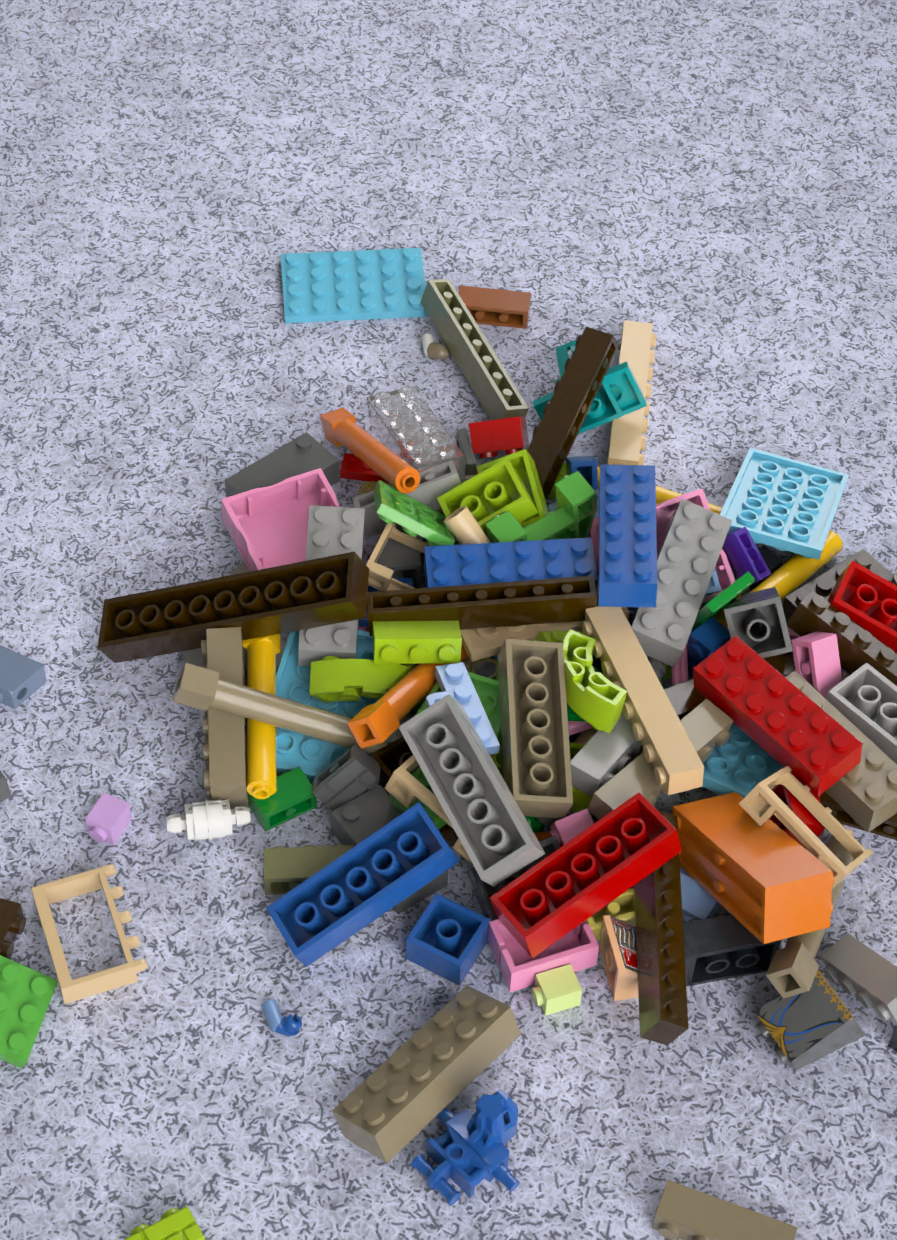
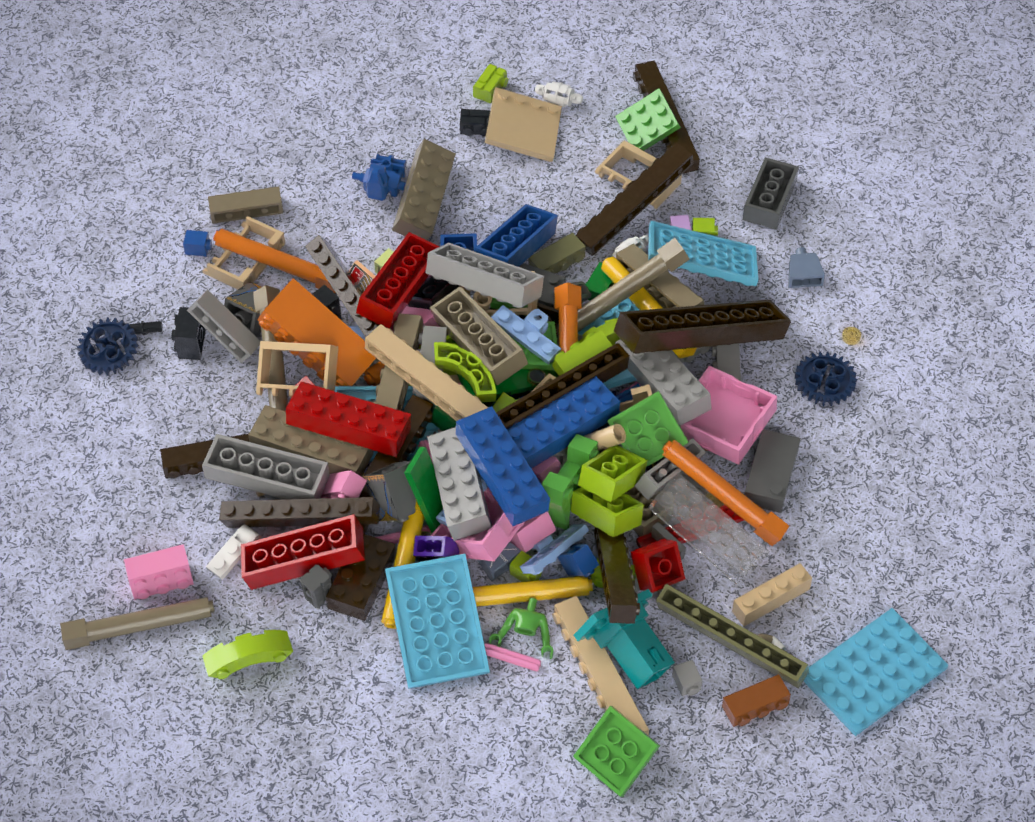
camera: 150 degrees right, 5 degrees up
(37, 582) = (851, 335): none -> clear yellow tile
(77, 798) = (705, 226): none -> lime brick
(77, 1149) = (560, 89): none -> white piece
(122, 545) = (812, 373): none -> dark blue gear
(128, 736) = (708, 253): none -> medium azure plate
(136, 872) = (635, 198): none -> dark brown brick
(181, 1119) = (523, 124): none -> tan plate
(245, 1173) = (474, 122): none -> black brick
(280, 1024) = (514, 189): arm -> none
(390, 373) = (771, 594): none -> tan brick
(544, 352) = (687, 678): none -> light grey brick
(669, 319) = (616, 751): none -> bright green plate
(680, 466) = (526, 623): none -> bright green piece
(712, 455) = (512, 657): none -> bright pink axle
(747, 1098) = (271, 257): none -> orange brick
(785, 1085) = (276, 241): none -> tan hinge
(840, 1196) = (197, 243): none -> blue brick

